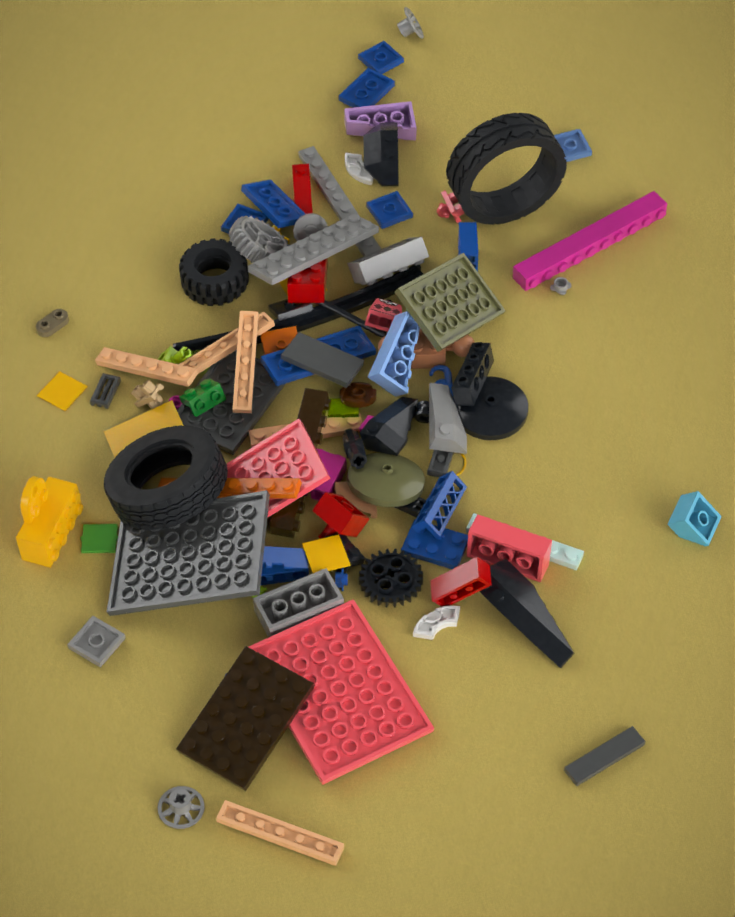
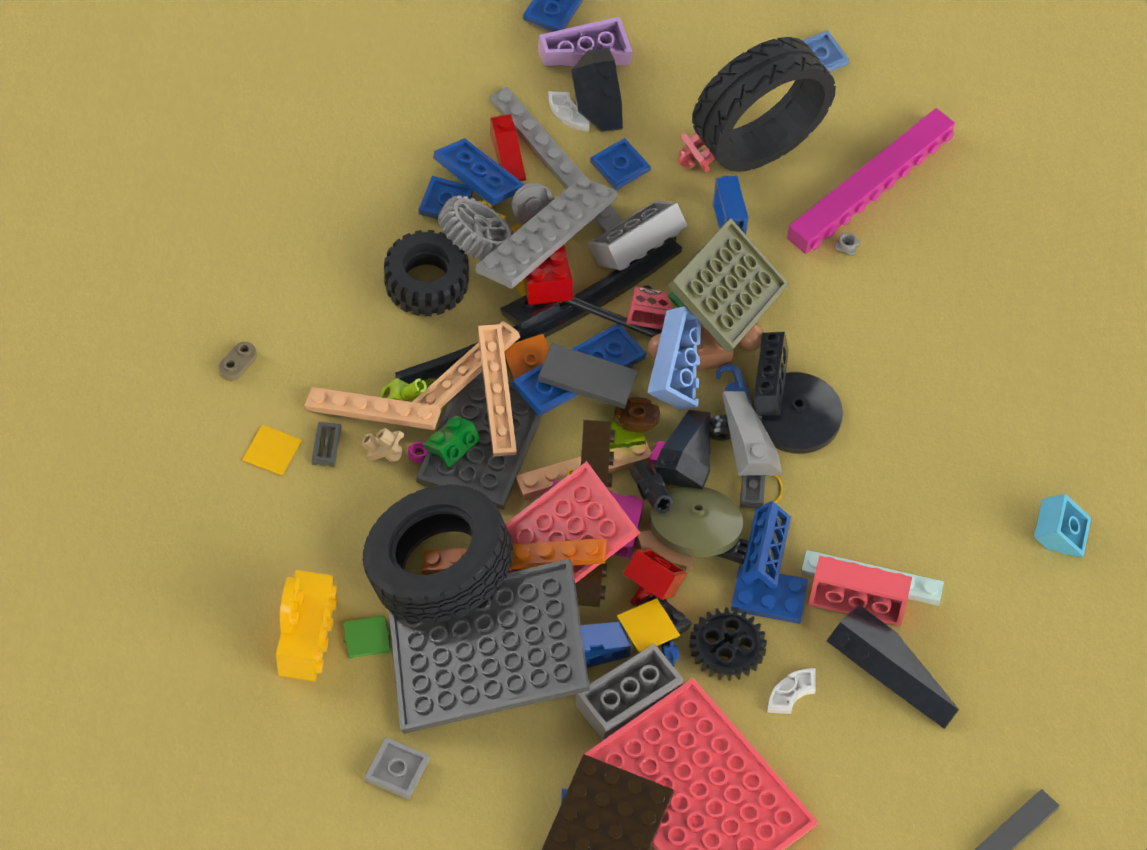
camera: 15 degrees left, 5 degrees up
(152, 420) = (383, 489): yellow piece -> none
(460, 582) = (814, 641): red brick -> none

